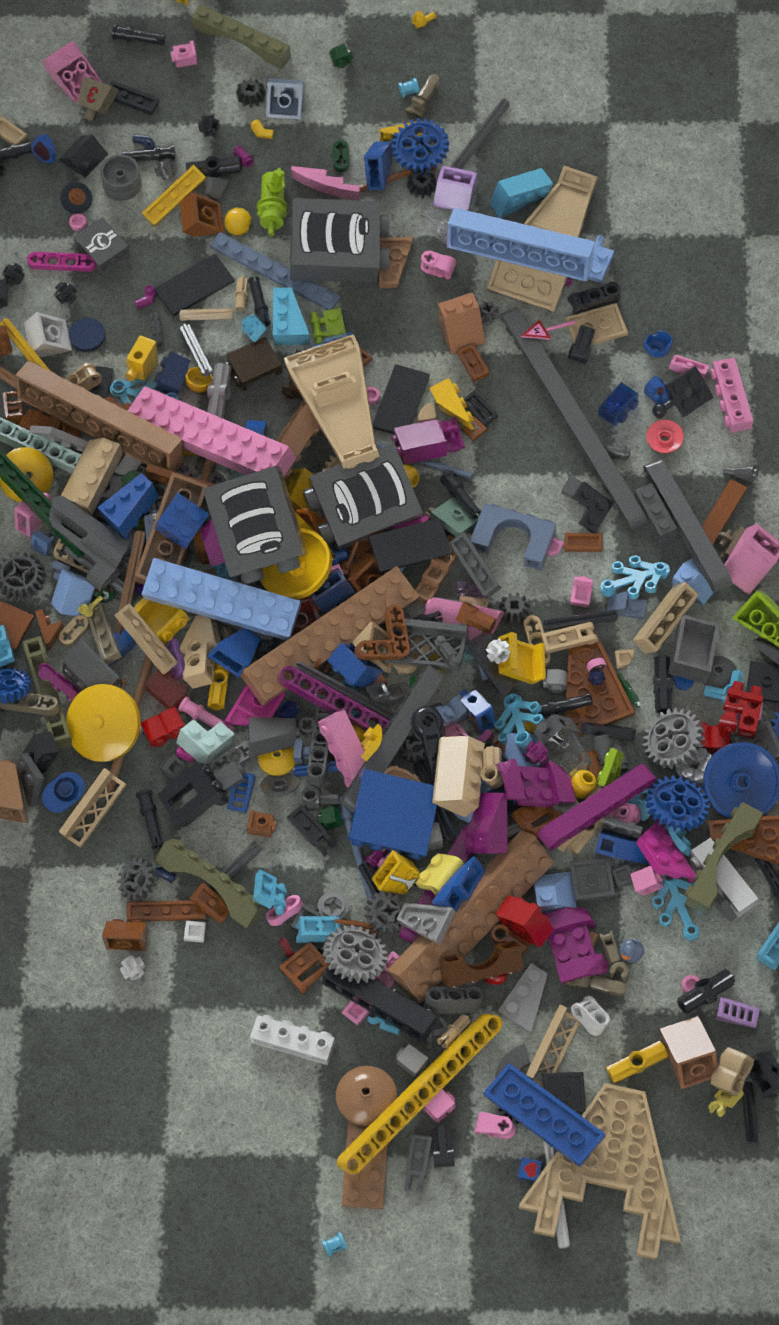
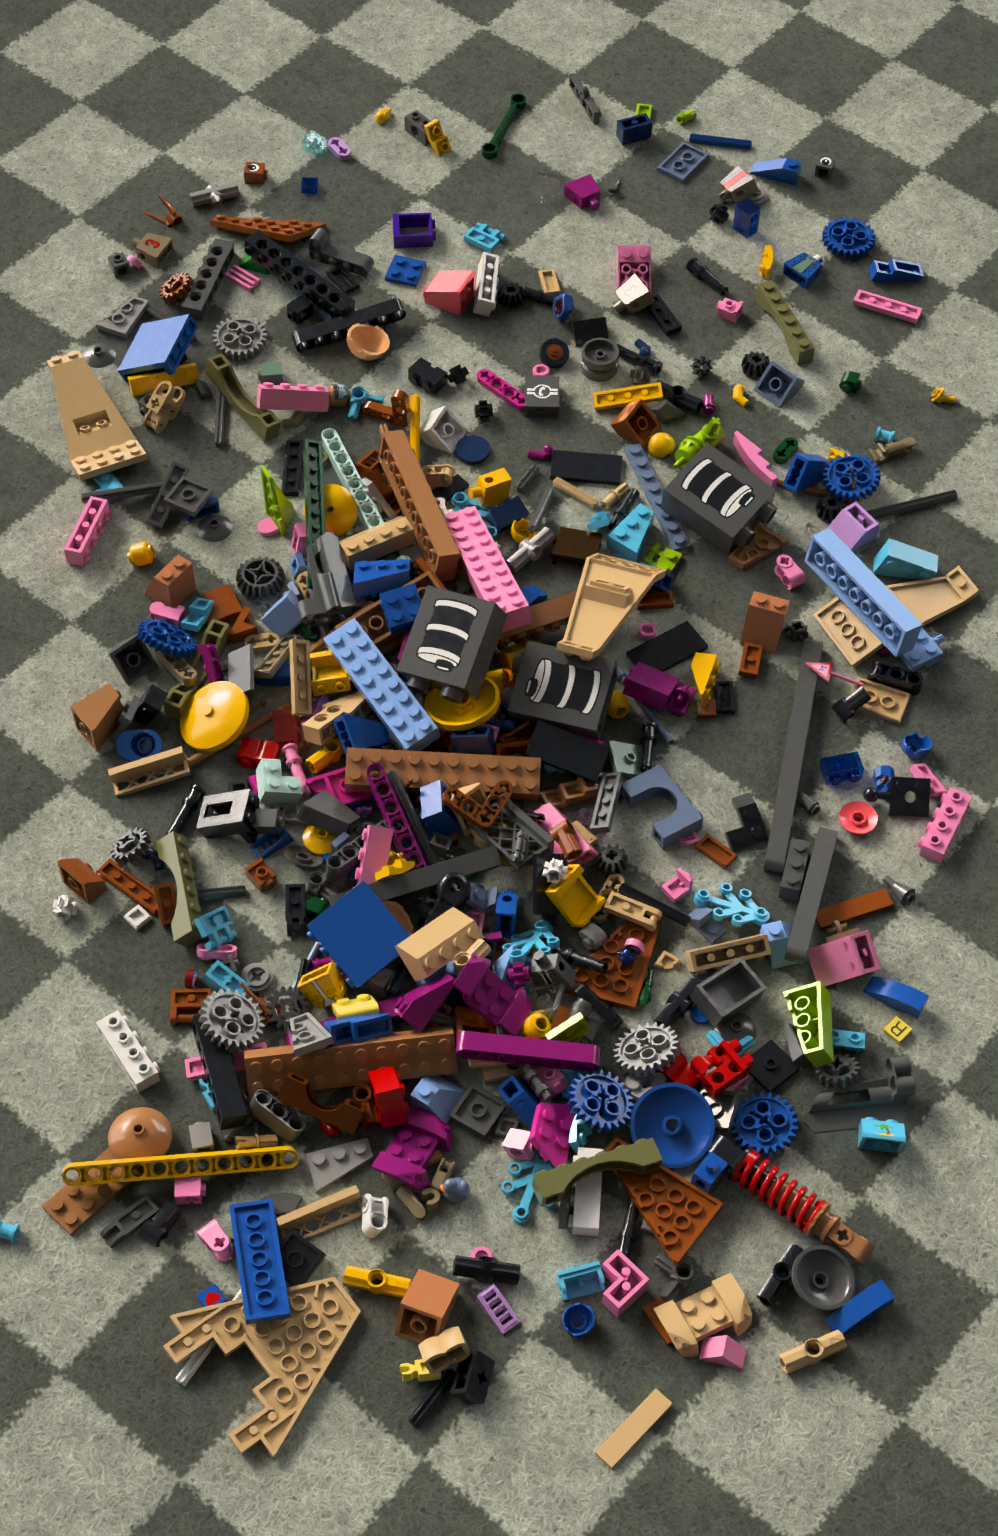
camera: 35 degrees right, 10 degrees down
(87, 610) = (283, 633): light yellow hand -> none
(427, 413) = (680, 672): tan tile -> none

